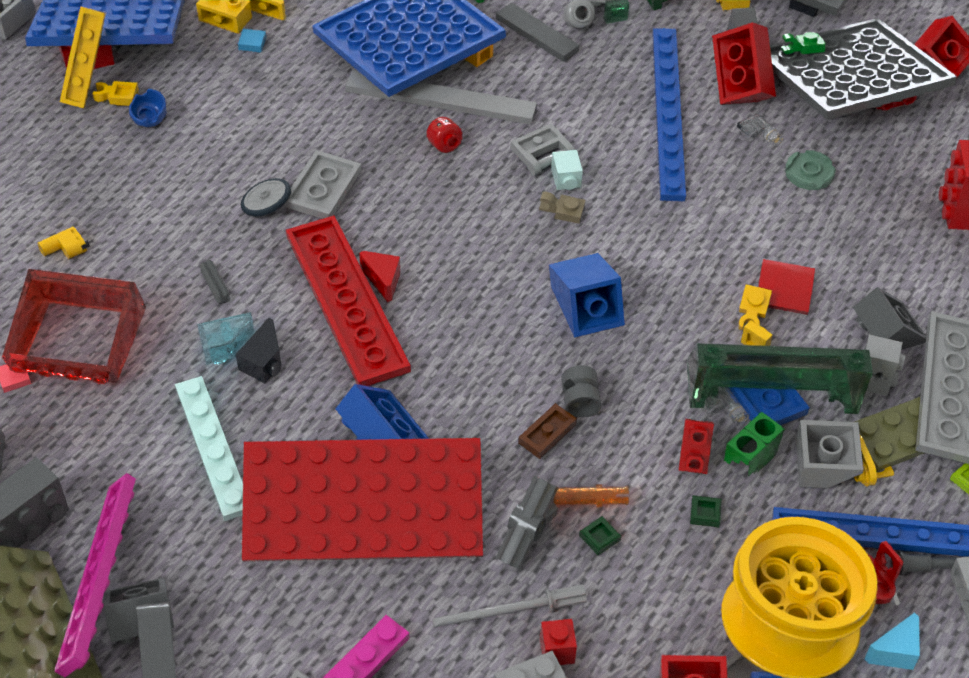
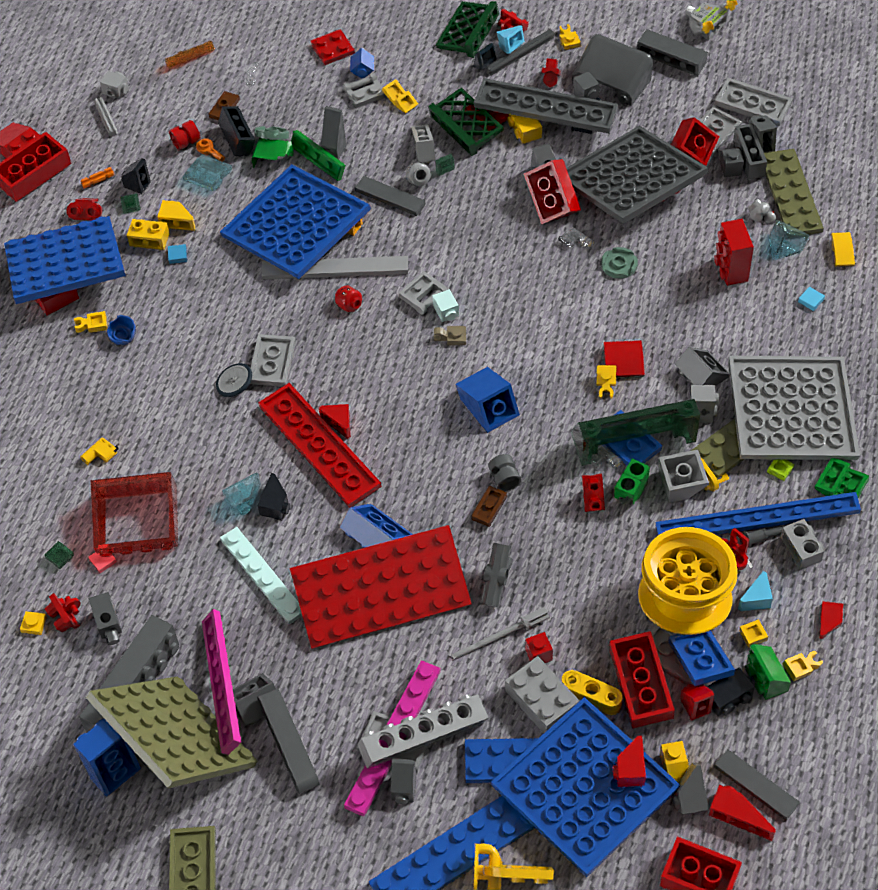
camera: 10 degrees left, 5 degrees up
(82, 57) = (61, 303): yellow plate -> none
(215, 282) = (220, 454): dark grey axle -> none
(591, 495) = (535, 543): clear orange pin -> none
(600, 535) = (545, 570): dark green tile -> none
(668, 116) = (506, 241): blue plate -> none
(705, 511) = (610, 535): dark green tile -> none
(755, 335) = (613, 402): yellow plate -> none
(806, 43) = (593, 162): green plate -> none

